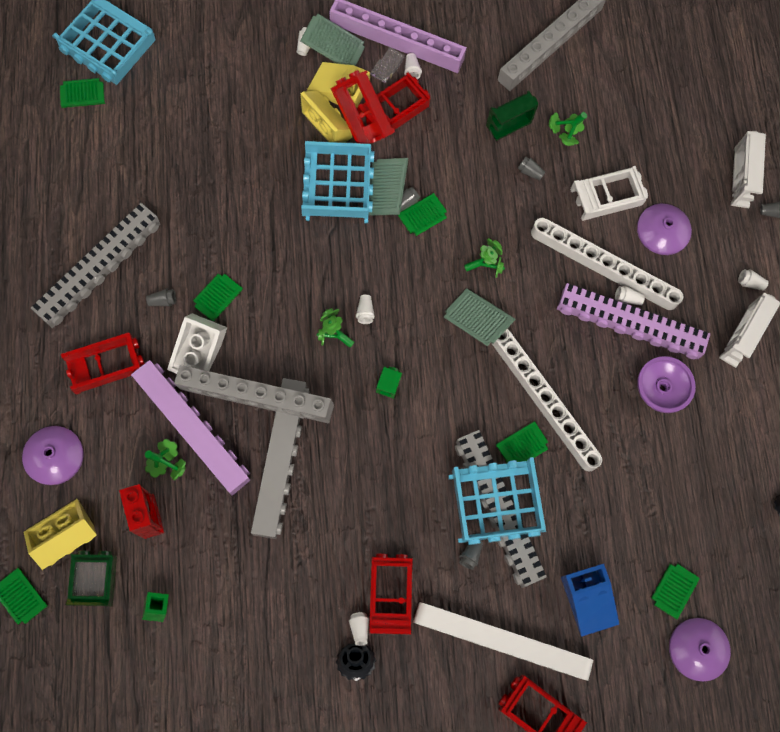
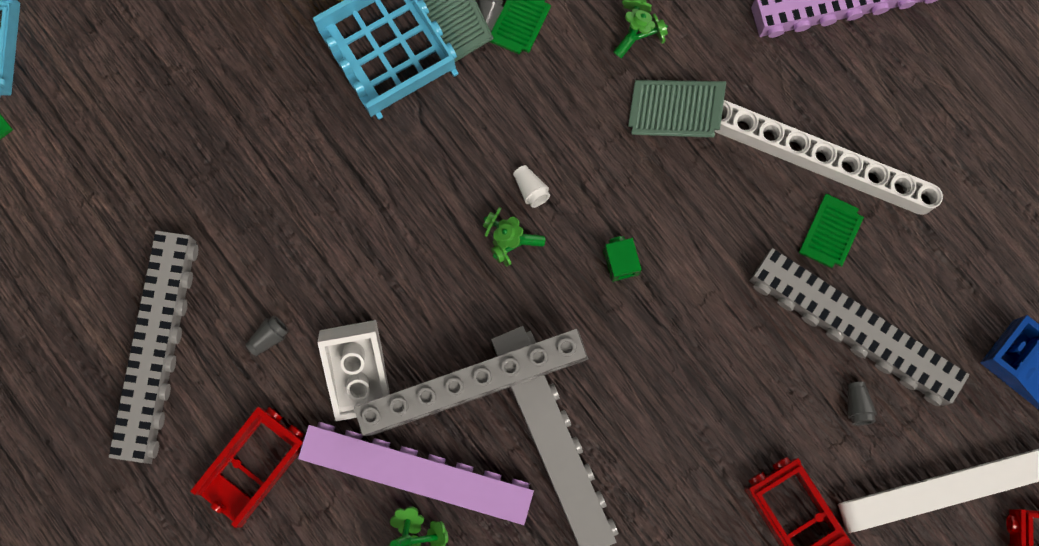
camera: 25 degrees left, 5 degrees up
(217, 296) = (333, 288): green window -> none
(492, 472) = (824, 289): medium azure window -> none
(675, 378) = (964, 37): medium lavender dish -> none

